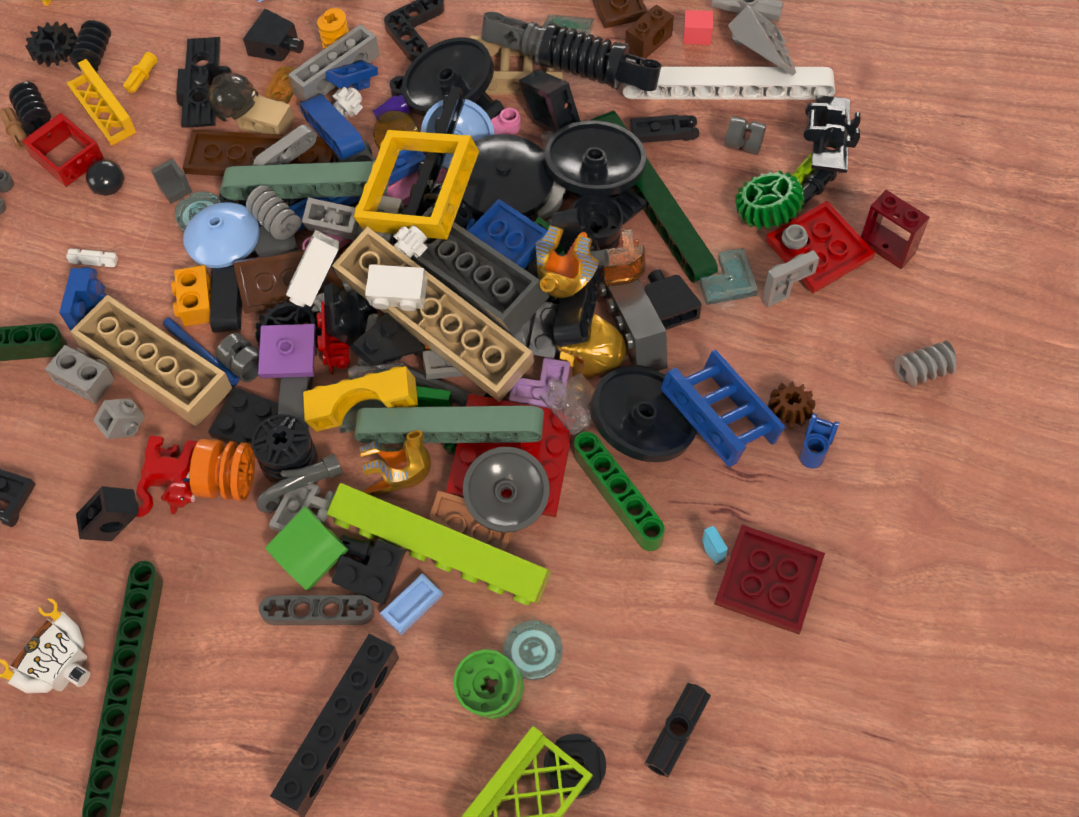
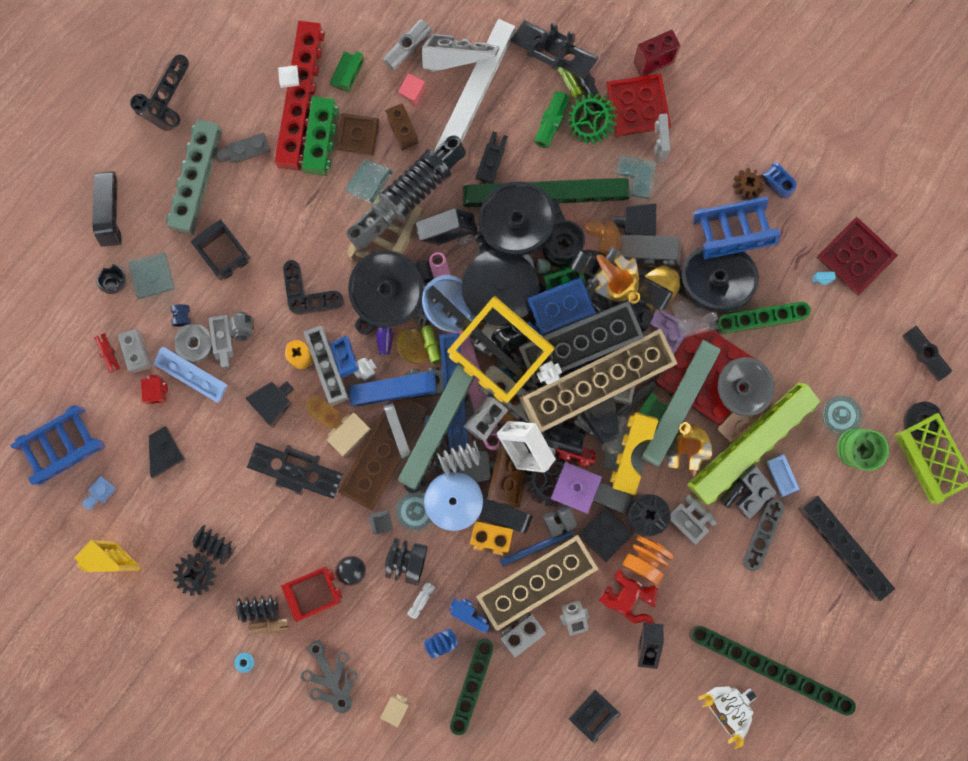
camera: 65 degrees left, 20 degrees up
(40, 288) = (441, 643): none -> blue gear
(105, 98) = (271, 547): yellow fence -> none
(129, 216) = (406, 561): none -> black wheel
(140, 72) = (256, 514): yellow axle -> none
(231, 96) = (331, 451): clear smoke cylinder -> none
(296, 479) = (672, 492): dark grey plant -> none
(306, 548) = (723, 526): bright green slope -> none
(396, 287) = (583, 396): white brick -> none
(737, 131) = (527, 106): dark grey wheel -> none
(743, 165) = (551, 119): none -> green piece
(795, 237) = (630, 118): light grey plate -> none
(926, 363) = (756, 87): light grey piece -> none

